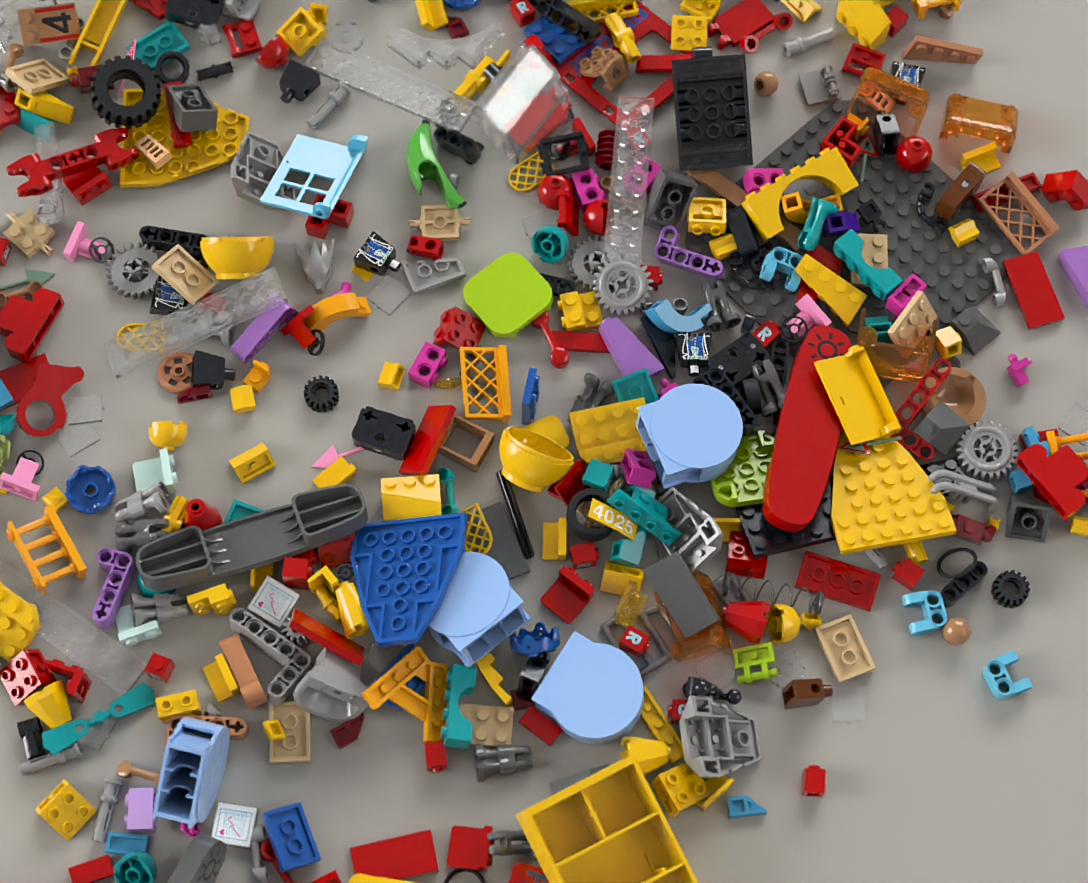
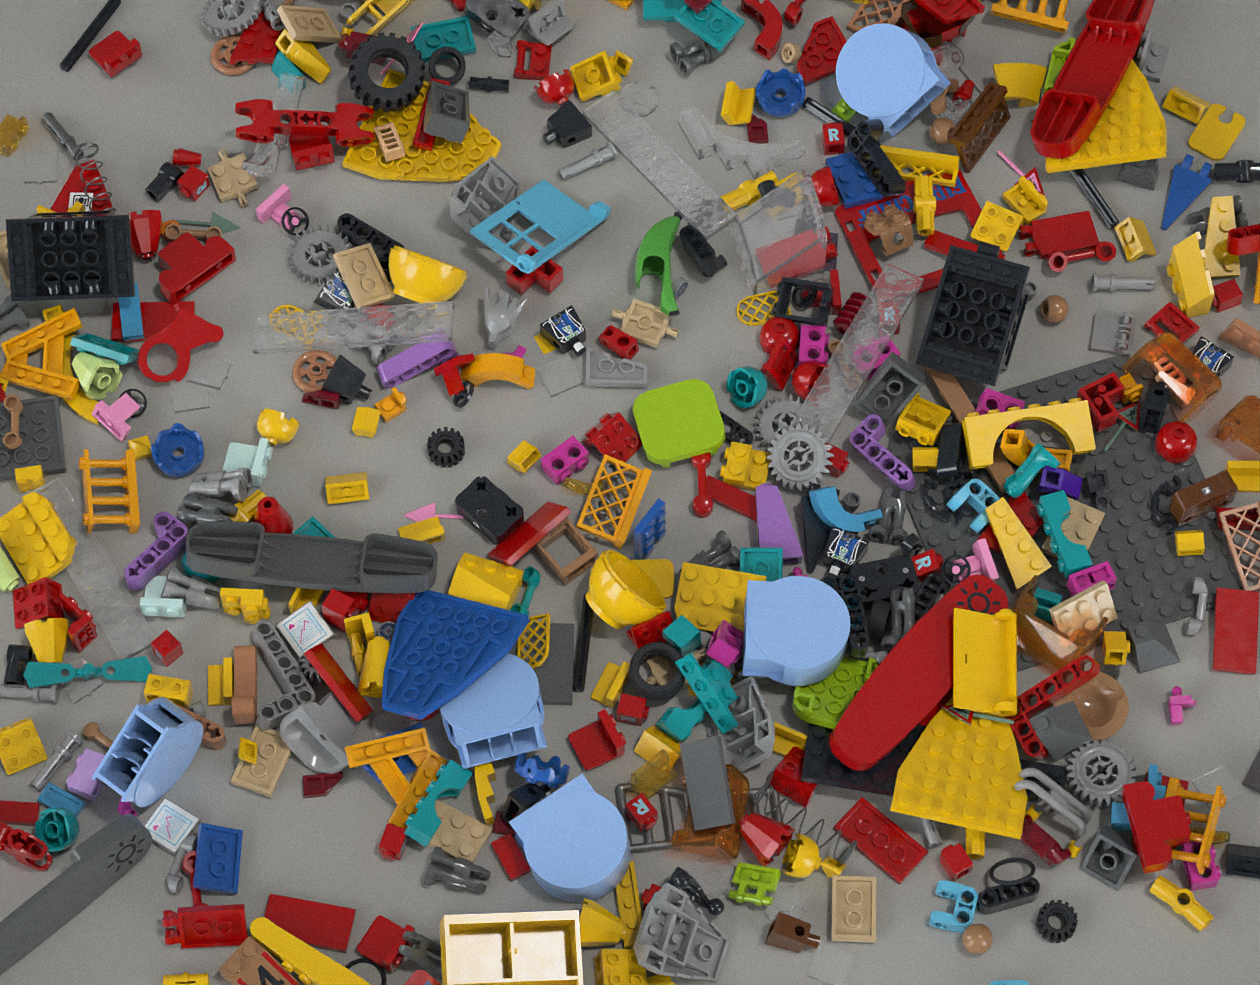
camera: 25 degrees right, 5 degrees down
(613, 518) = (674, 682): yellow sticker -> none
(900, 112) = (1177, 389): none -> light nougat slope

